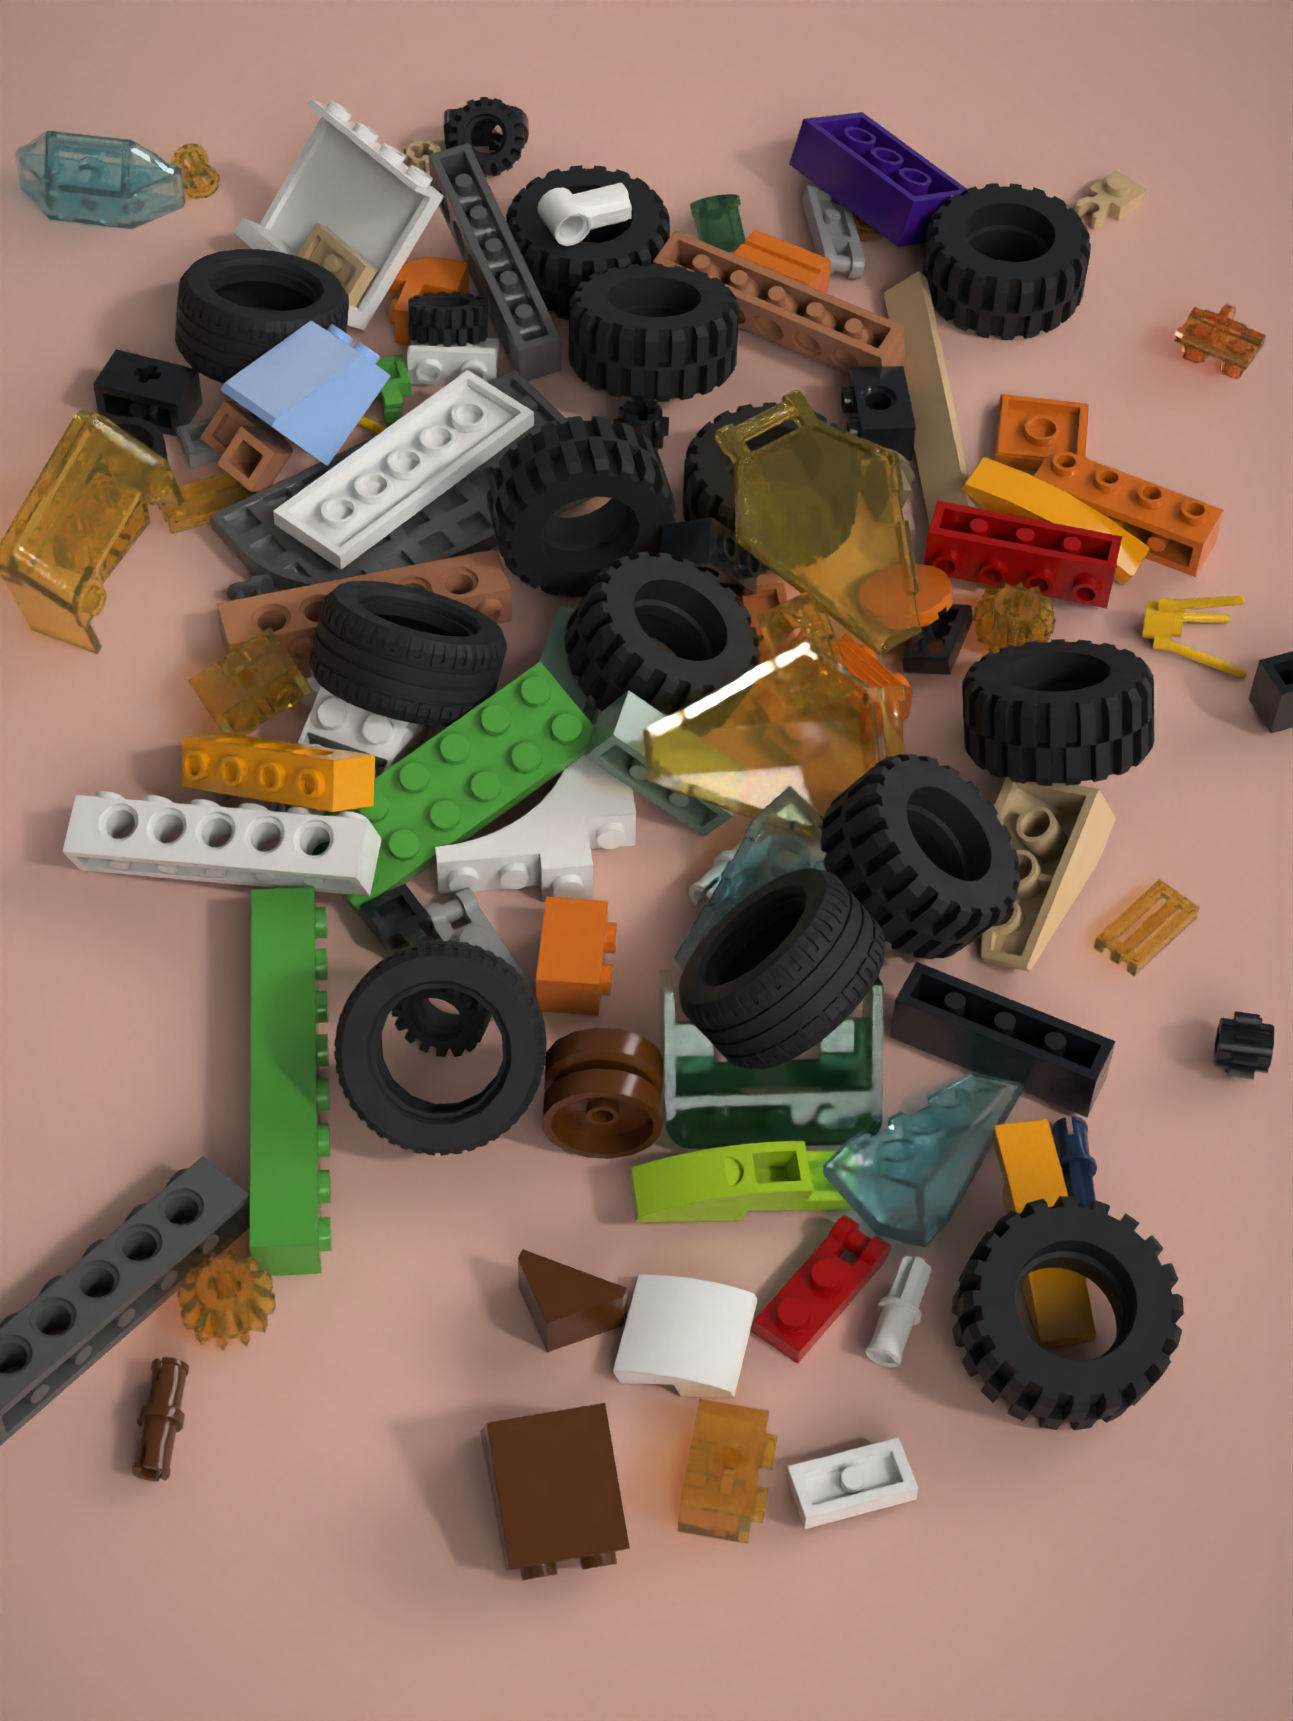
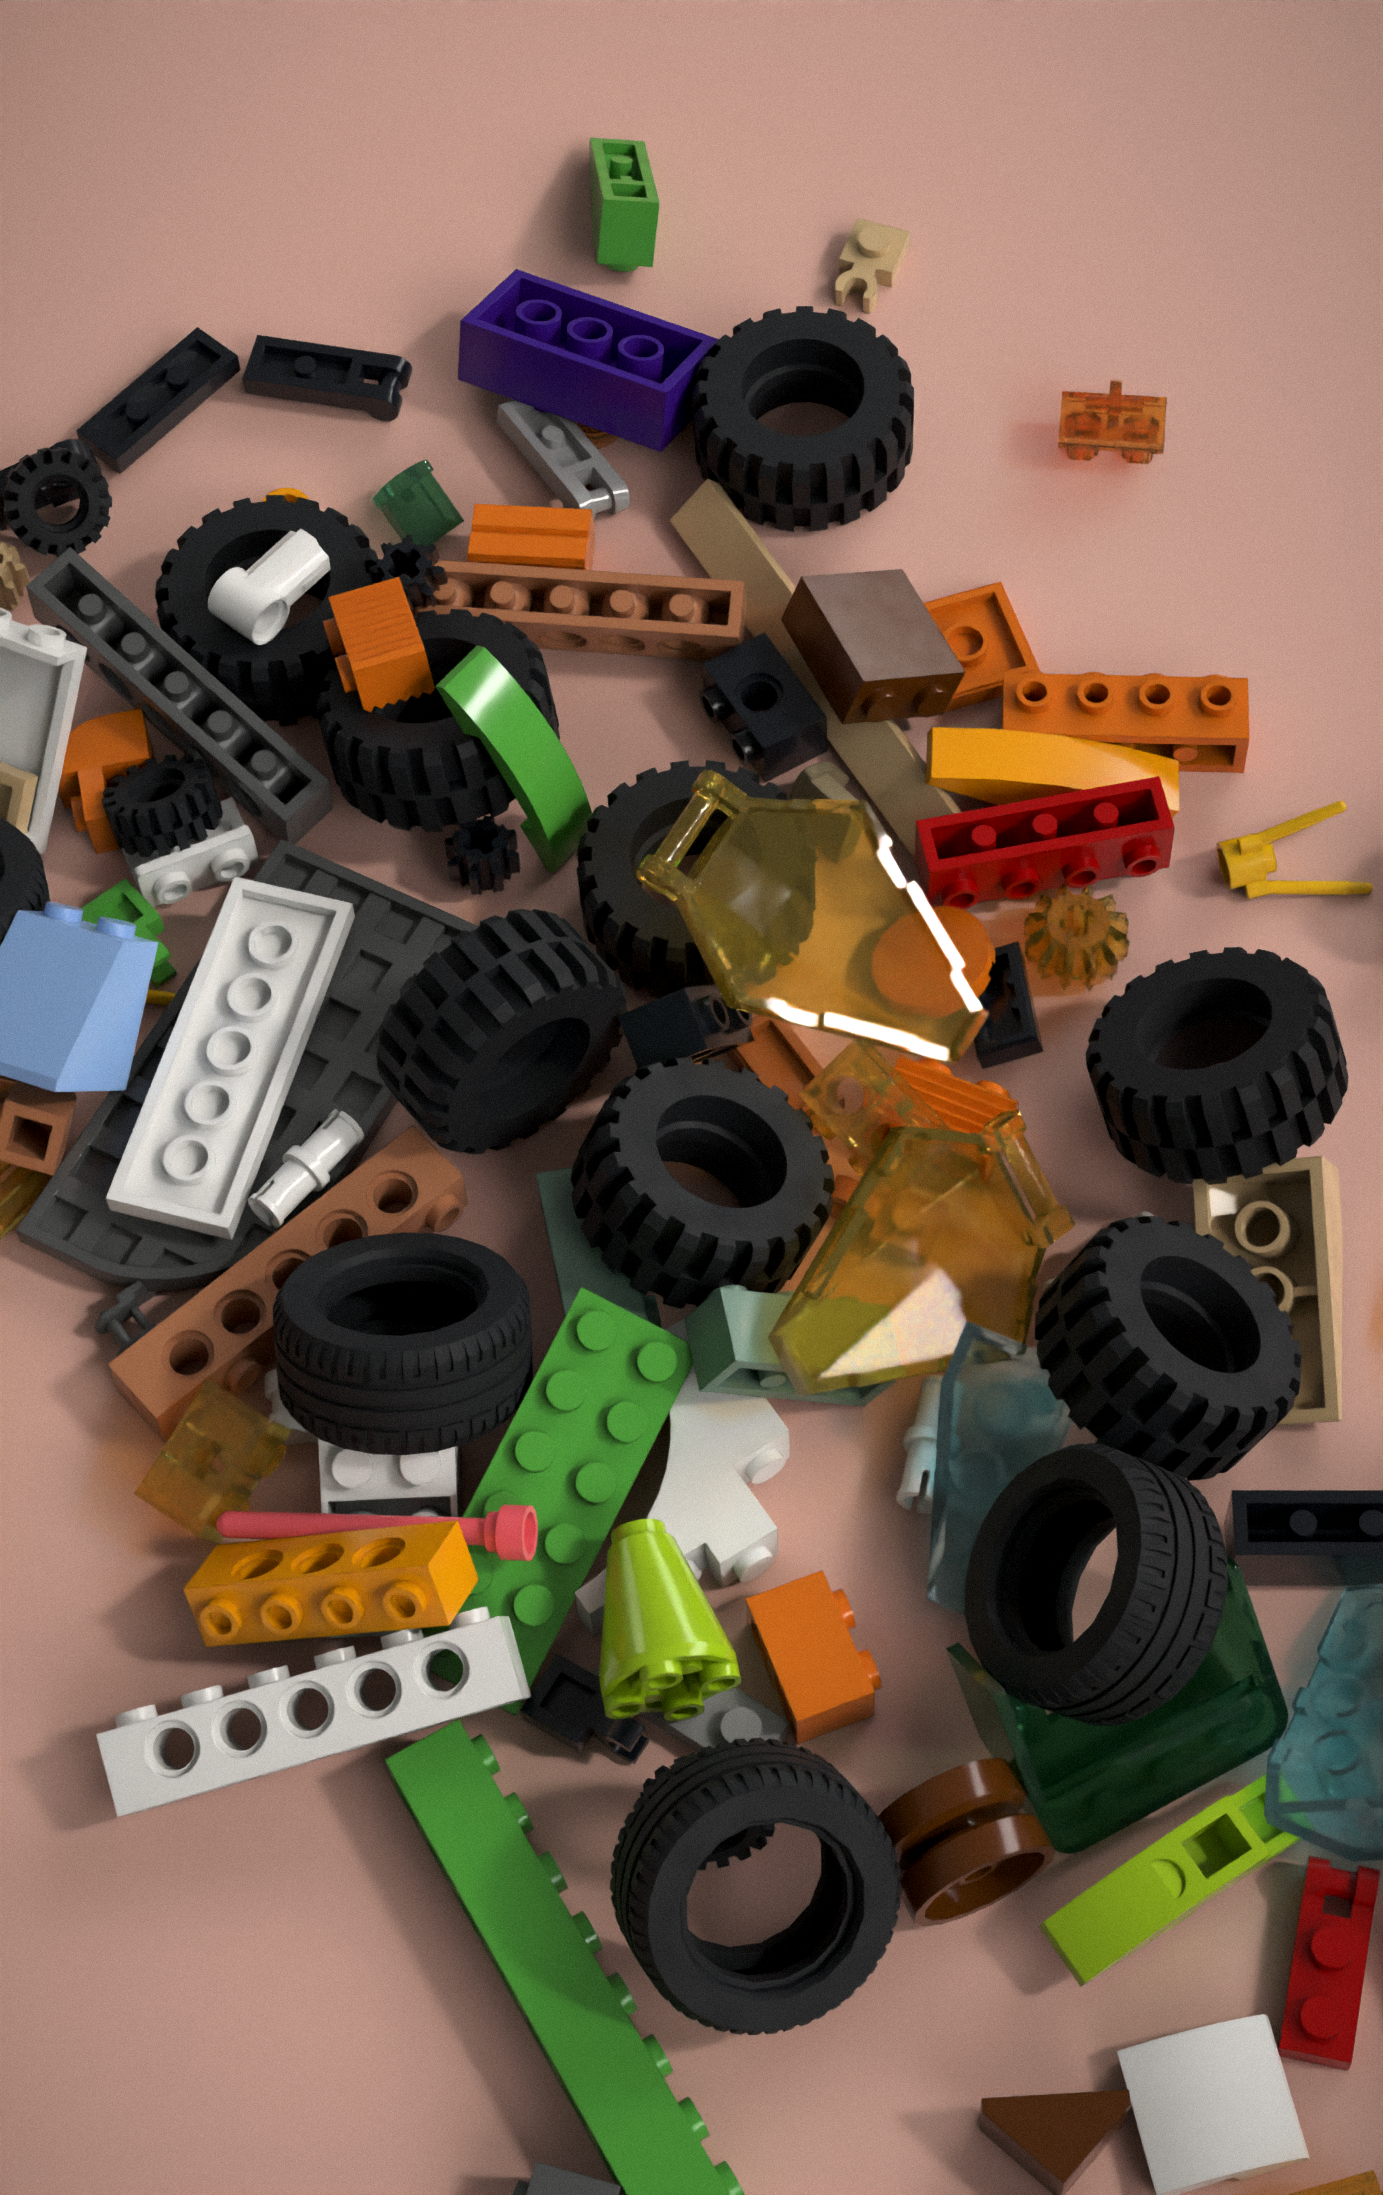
camera: 20 degrees left, 10 degrees up
(406, 782) = (508, 1532): none -> coral piece
(412, 546) = (306, 1168): none -> white pin
(470, 883) = (658, 1630): none -> lime cone
(590, 112) = (159, 400): none -> black plate
(632, 262) = (379, 643): none -> orange brick
(680, 239) = (414, 560): none -> black gear
(691, 353) = (524, 749): none -> bright green slope
(707, 137) = (327, 375): none -> black plate
(958, 109) = (622, 204): none -> bright green slope
(970, 396) = (872, 646): none -> reddish brown brick

